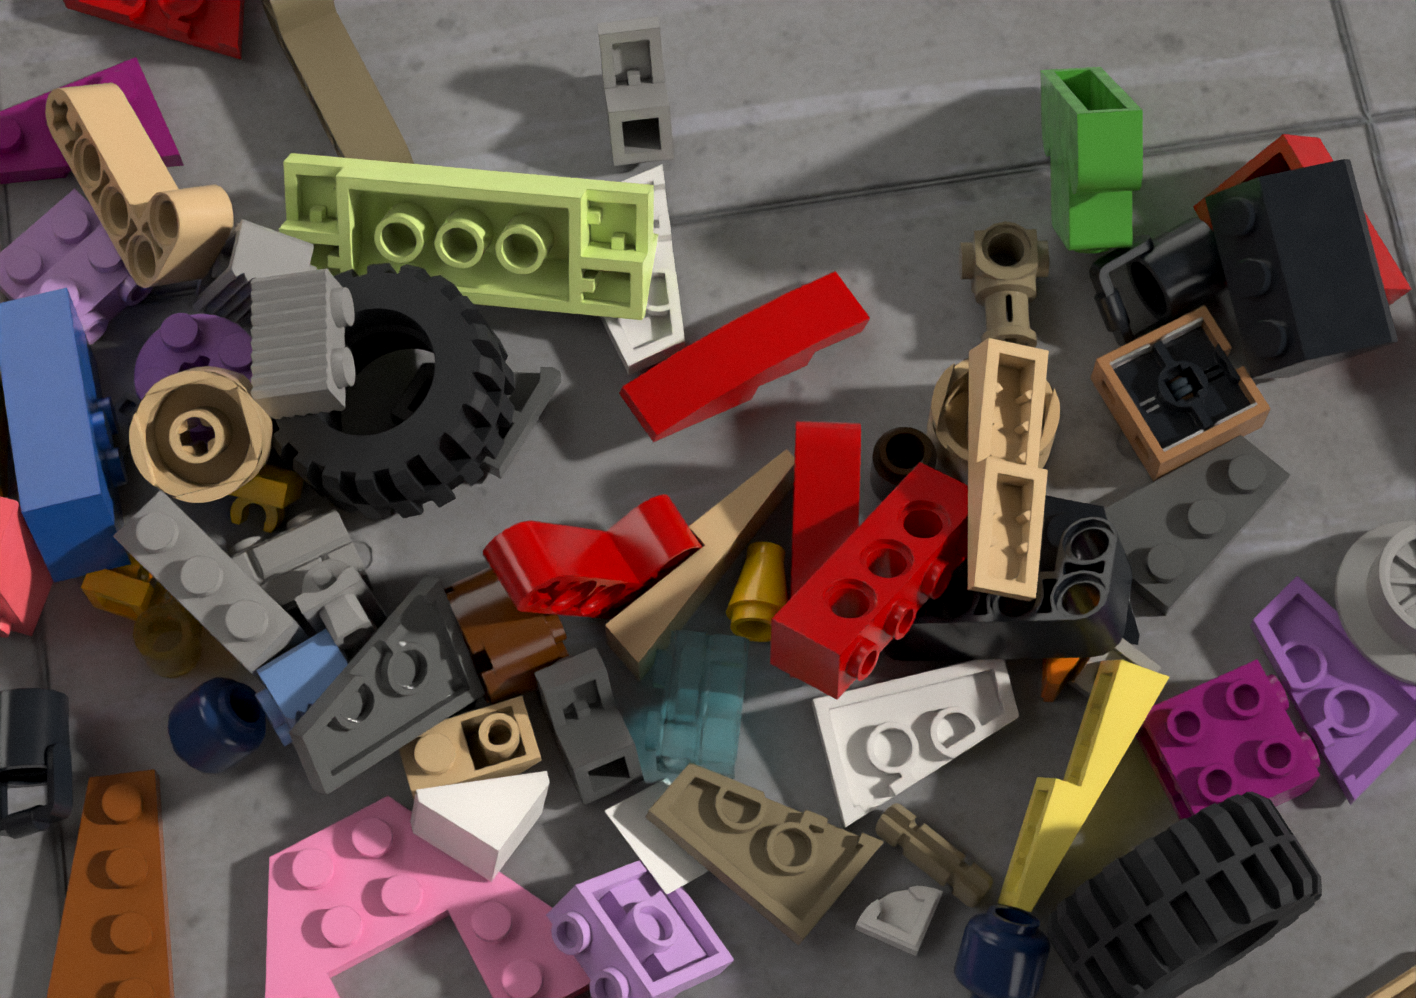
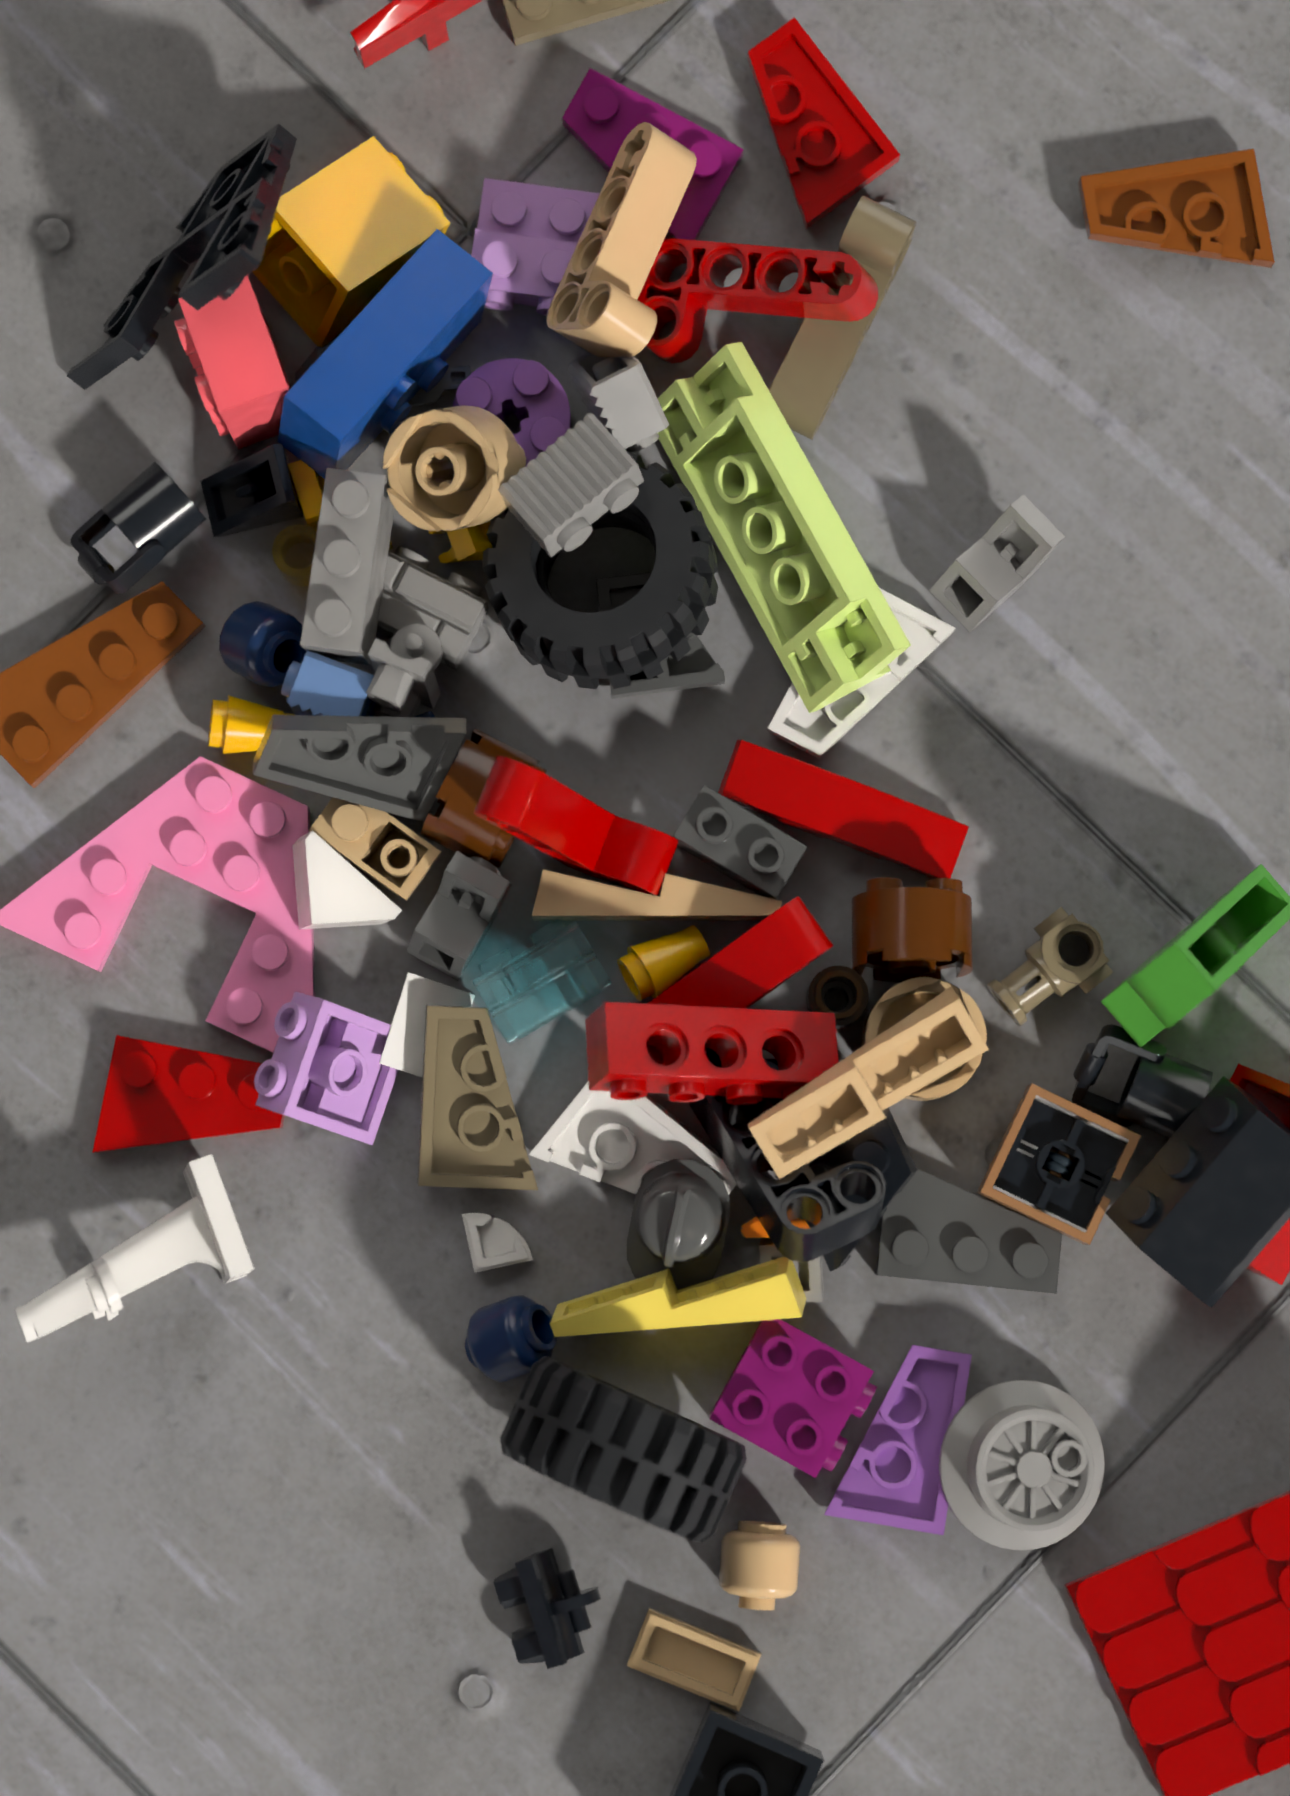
camera: 55 degrees right, 15 degrees up
(80, 639) = (252, 493): none -> black slope
(260, 112) = (755, 290): none -> red beam
(272, 800) = (238, 724): none -> yellow cone
(708, 453) = (739, 844): none -> dark grey brick
(891, 363) = (912, 929): none -> reddish brown brick
(934, 855) = (556, 1233): dark tan axle -> none
(1002, 739) = (679, 1222): none -> dark grey piece
(1363, 887) = (759, 1564): none -> tan head

